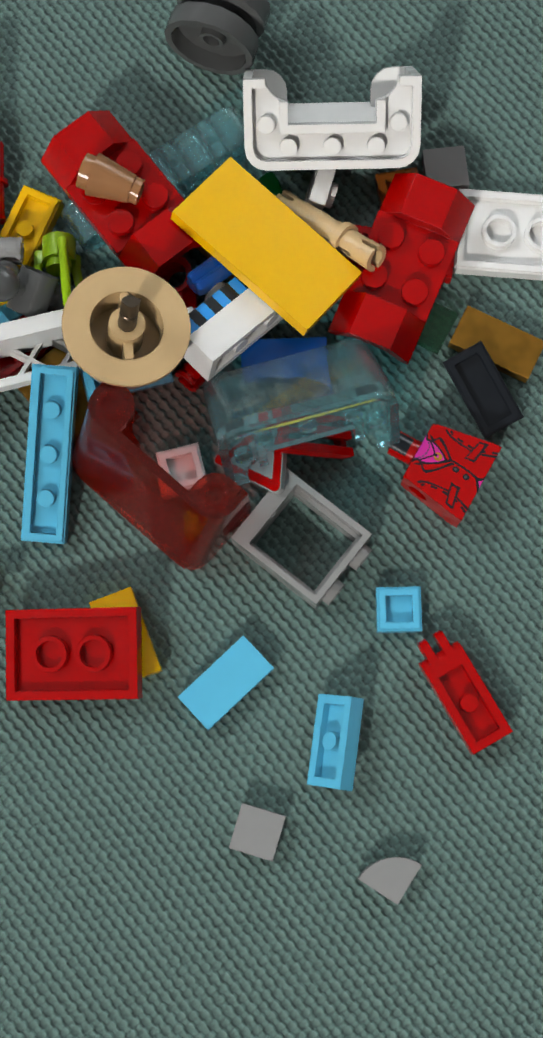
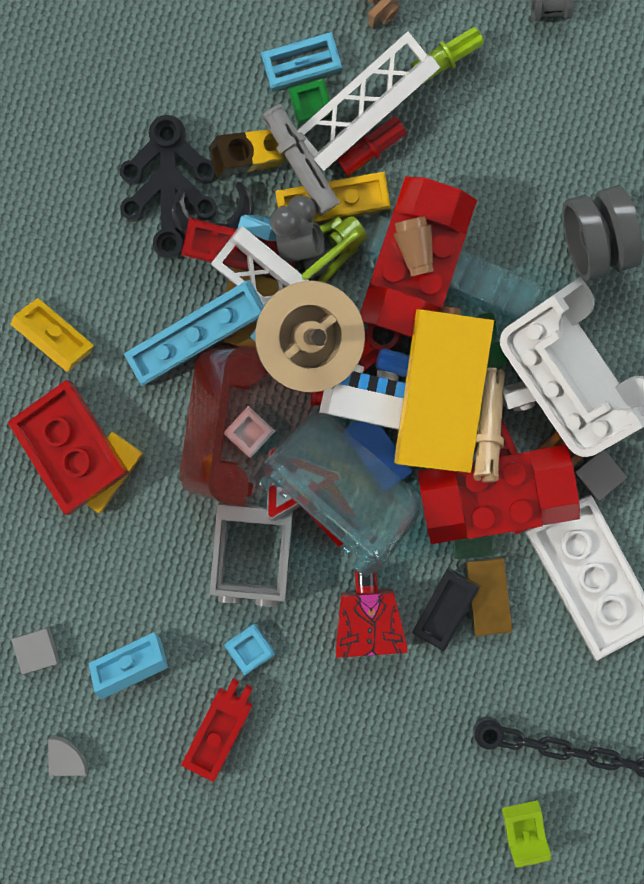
camera: 50 degrees right, 10 degrees up
(225, 682) = (120, 563): medium azure tile -> none

